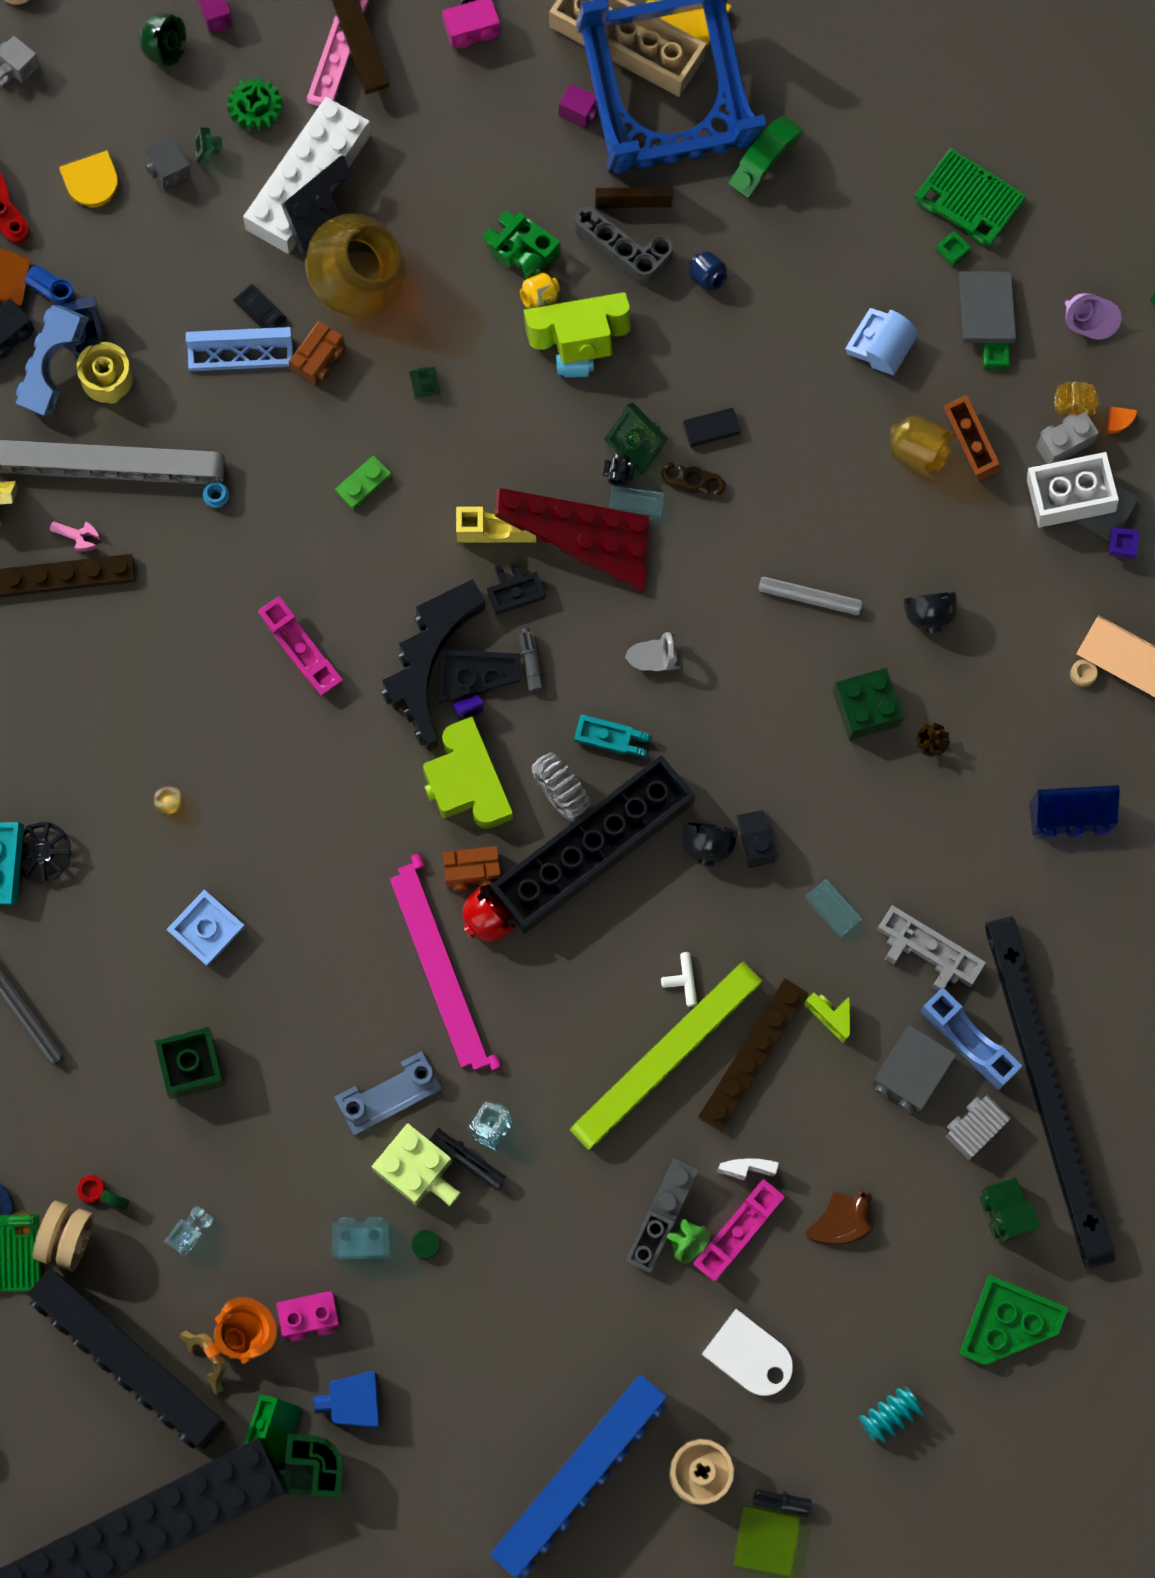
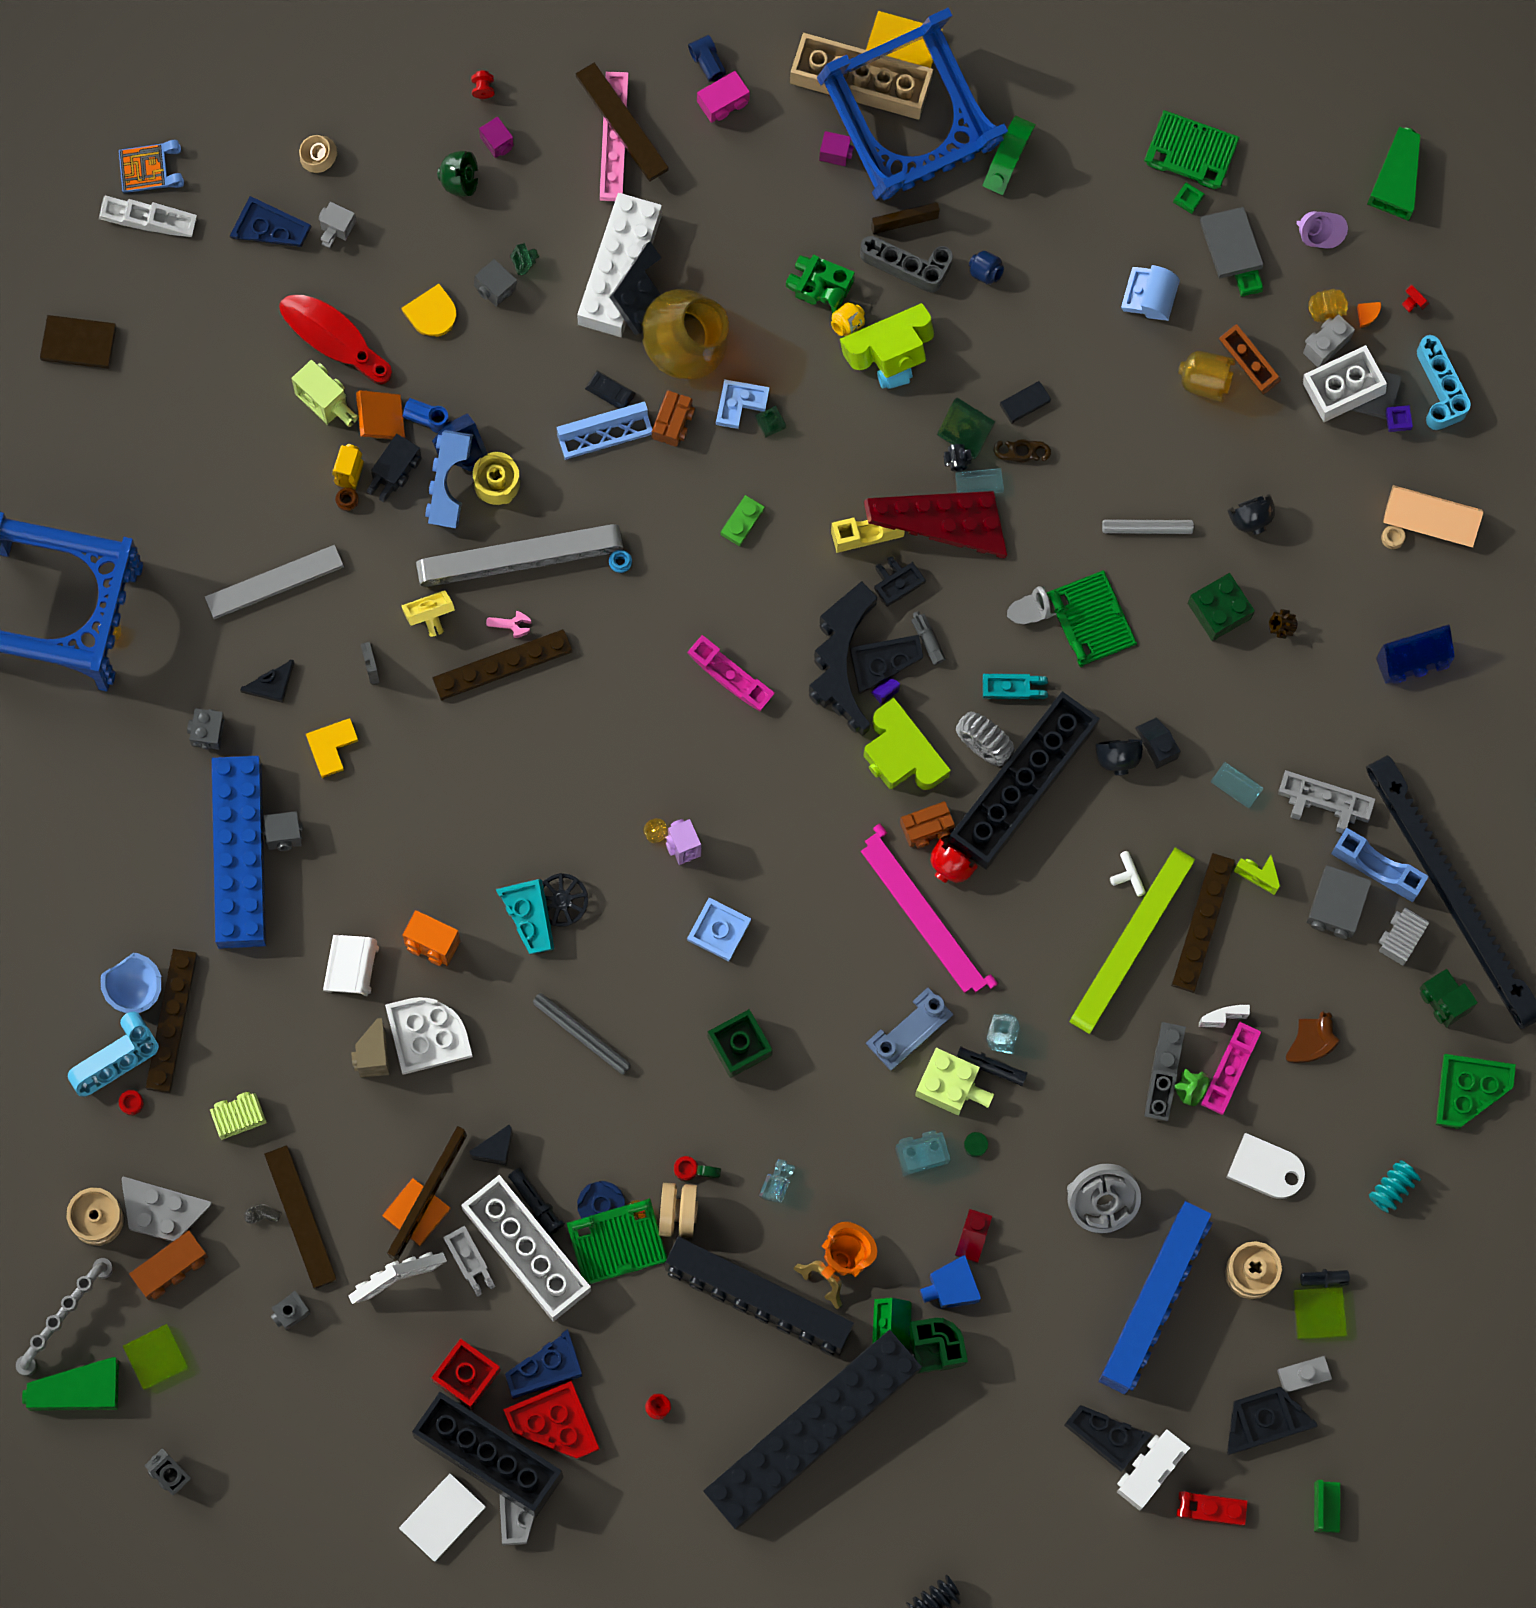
camera: 15 degrees left, 0 degrees up
(191, 819) = (683, 841): none -> lavender brick
(262, 110) = (565, 212): green gear -> none
(308, 1315) = (896, 1225): dark pink brick -> none
(393, 1349) = (973, 1235): none -> dark red slope
(394, 347) = (737, 396): none -> light blue plate
(555, 1326) = (1097, 1182): none -> light grey piece
(721, 682) = (1092, 618): none -> green window

